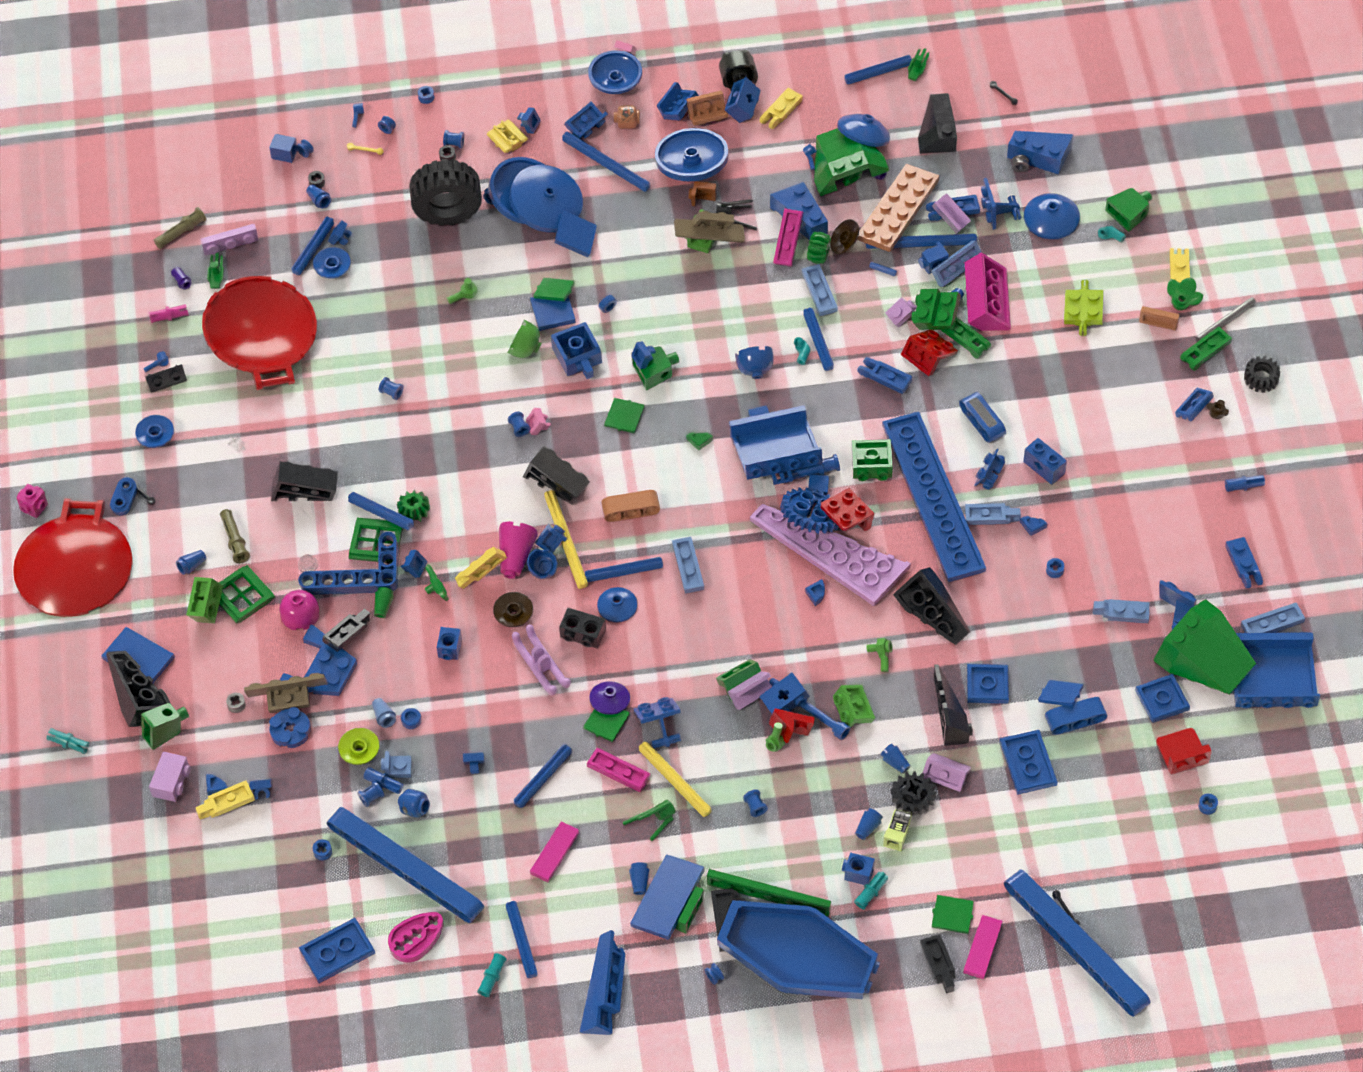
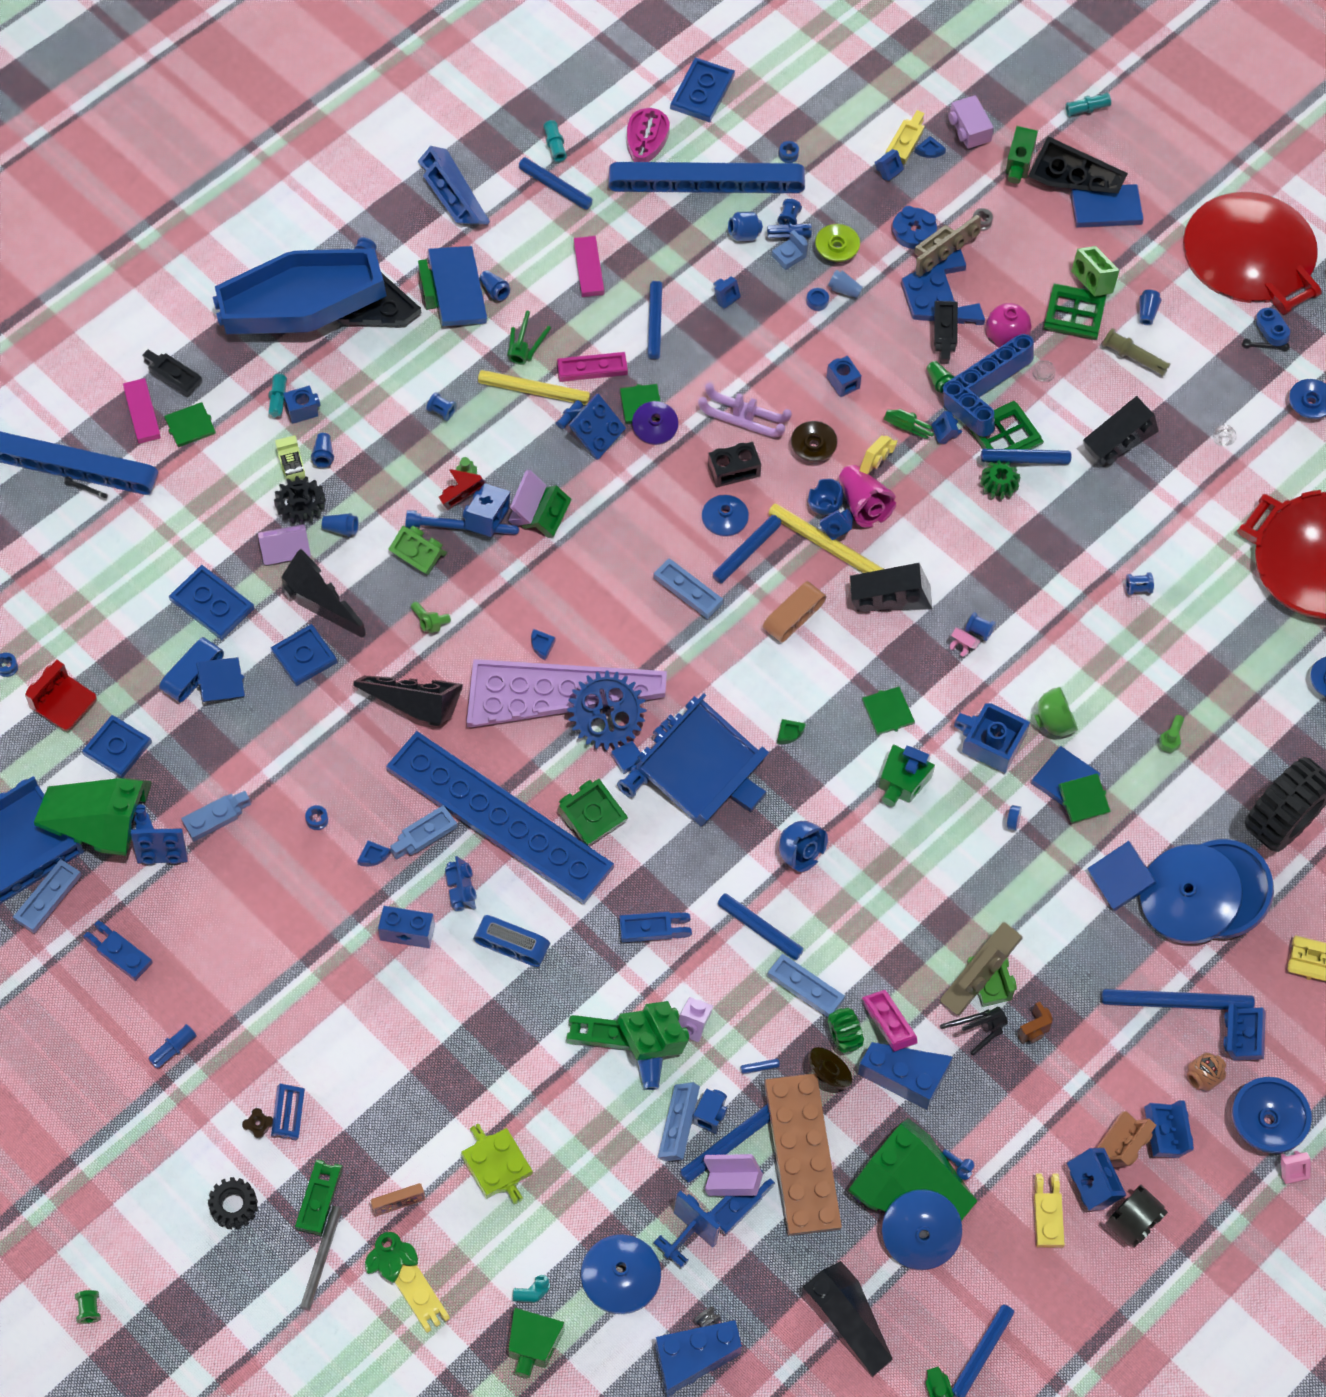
camera: 140 degrees right, 5 degrees up
(529, 119) = (1307, 990): blue tile -> none
(691, 154) = (1087, 1060): blue dish -> none
(766, 891) = (368, 337): green tile -> none
(803, 350) = (765, 903): teal arm -> none
(848, 510) = (568, 728): red bracket -> none
(926, 350) = (626, 987): red bracket -> none
(987, 294) = (615, 1102): dark pink slope -> none

